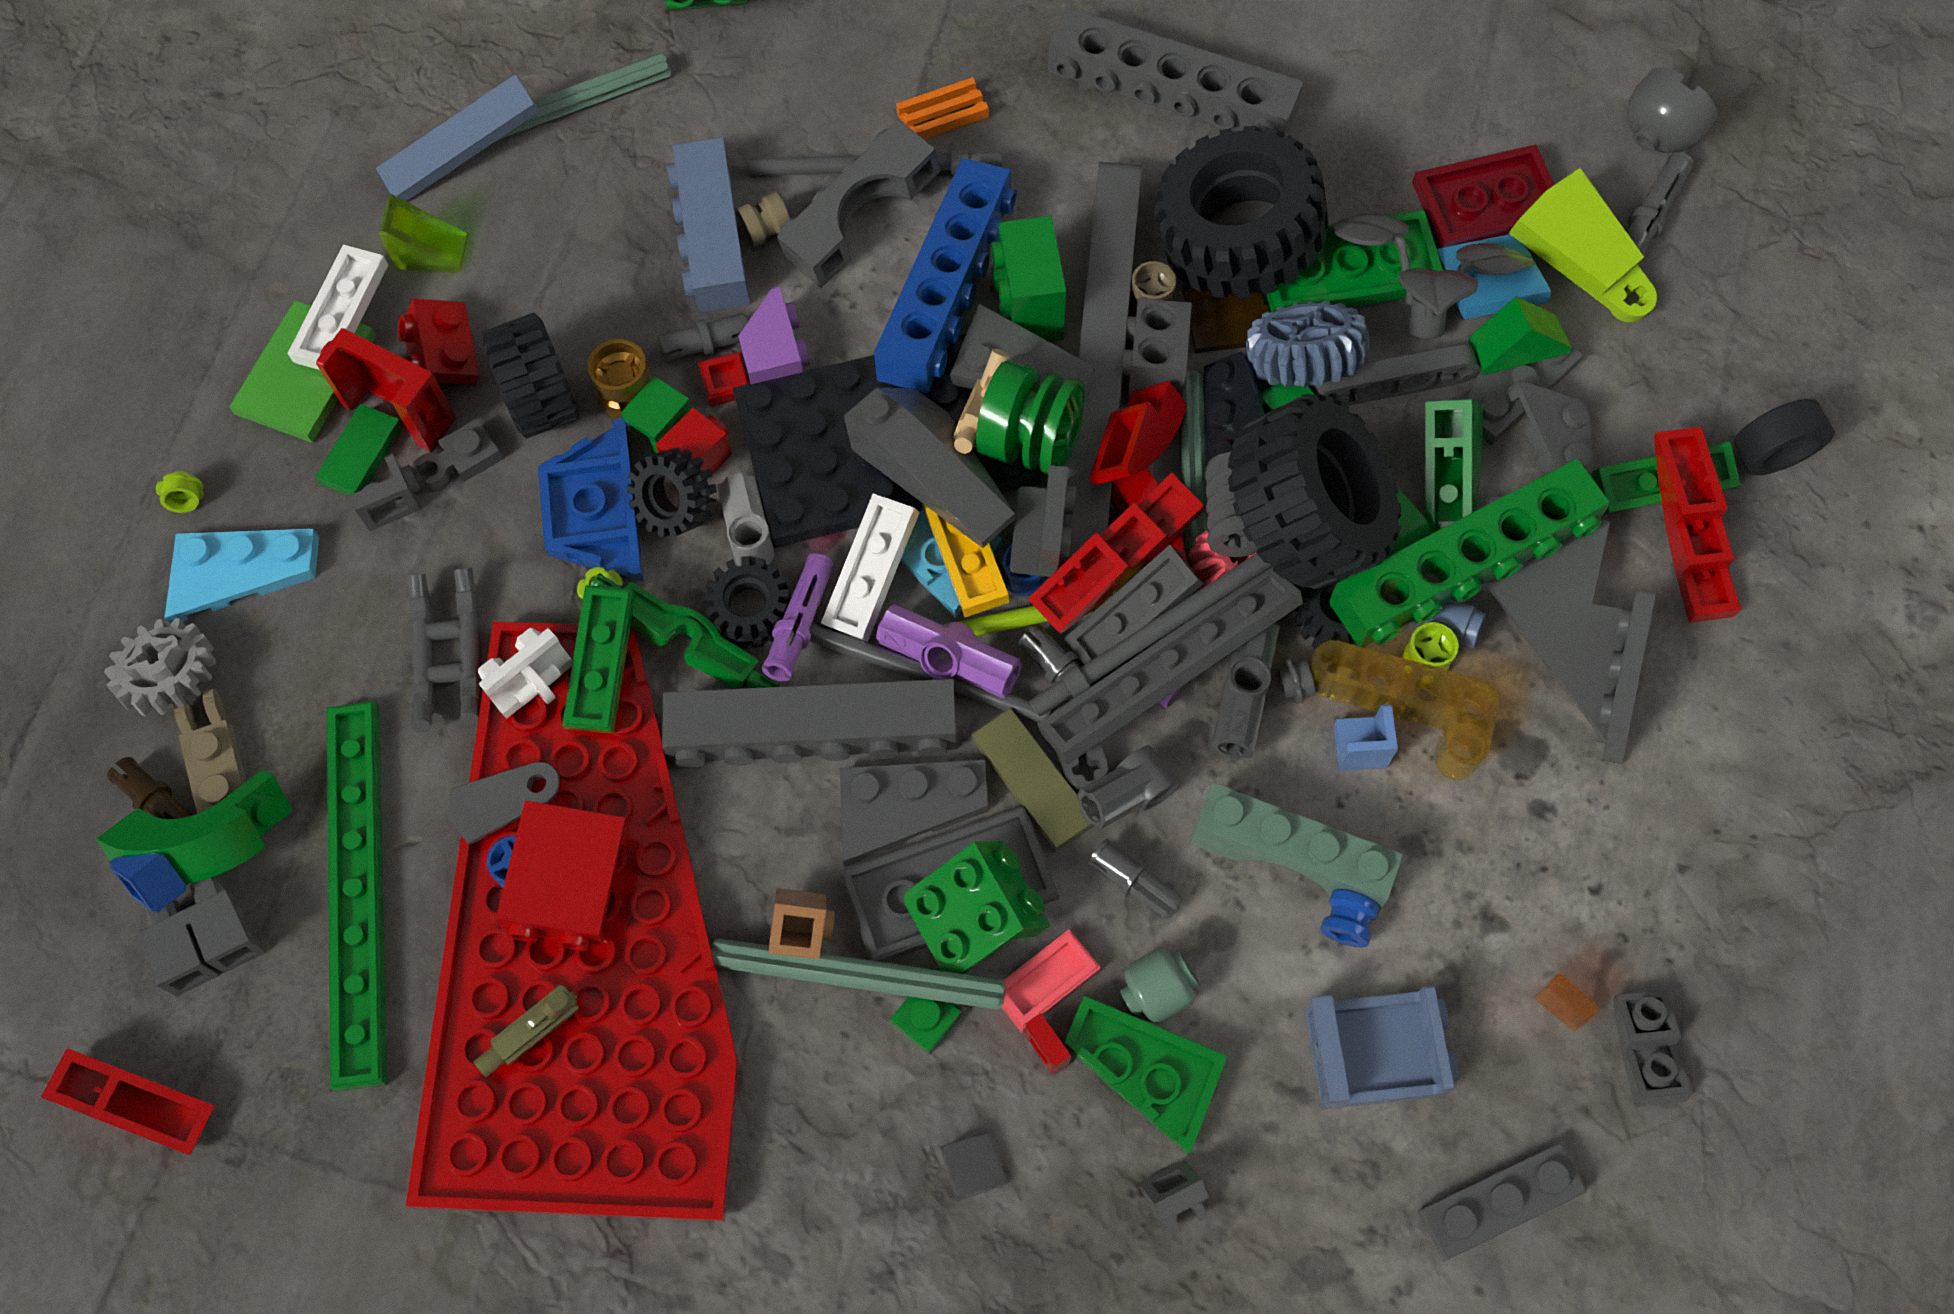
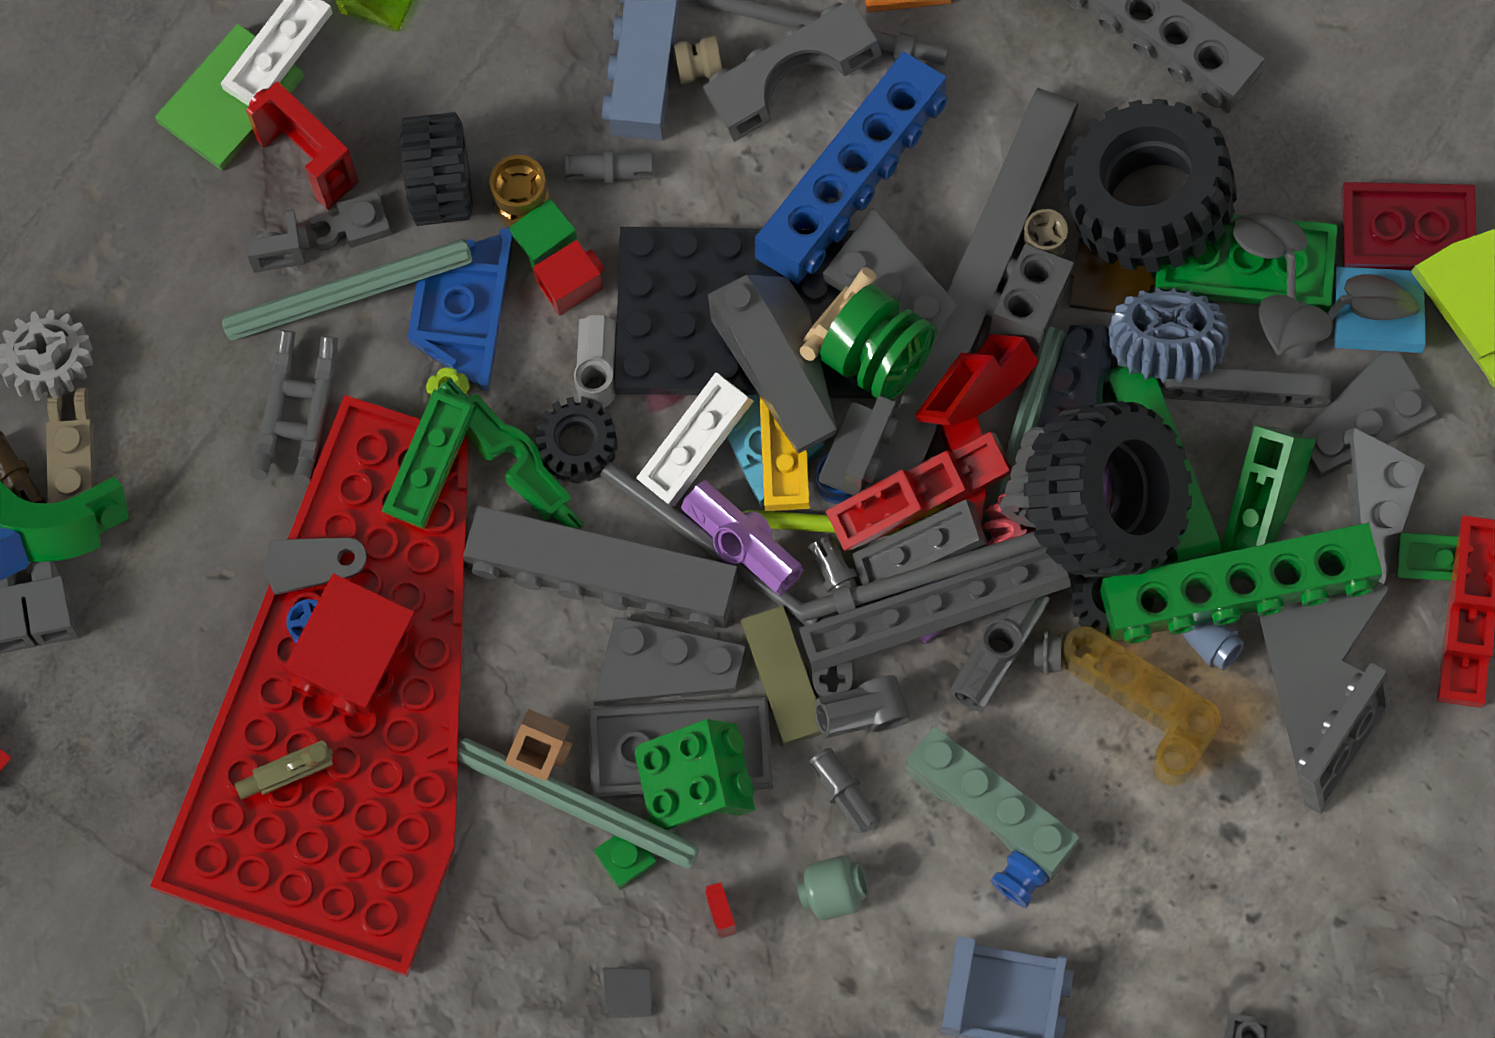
camera: 20 degrees right, 5 degrees up
(179, 492) = (93, 189): lime plate -> none
(226, 566) = (125, 273): medium azure wing -> none
(355, 899) = (167, 607): green tile -> none
(359, 451) = (262, 192): green tile -> none
(440, 340) = (360, 104): red bracket -> none
(468, 518) = (347, 289): none -> sand green axle
(525, 673) = (362, 455): white hips -> none
(653, 501) = (552, 312): black tyre -> none
(721, 376) = (614, 210): red tile -> none
(770, 342) = (666, 190): medium lavender slope -> none
(783, 657) = (590, 502): medium lavender pin -> none
(1030, 276) = (926, 197): green brick -> none
(1048, 979) = (740, 855): coral tile -> none
(1149, 1067) = (801, 954): green wing -> none
(1366, 741) = (1090, 726): medium blue panel -> none
(1435, 643) = (1183, 655): lime wheel -> none
(1517, 337) = (1376, 383): green slope -> none
(1566, 1002) = (1182, 1005): clear orange tile -> none

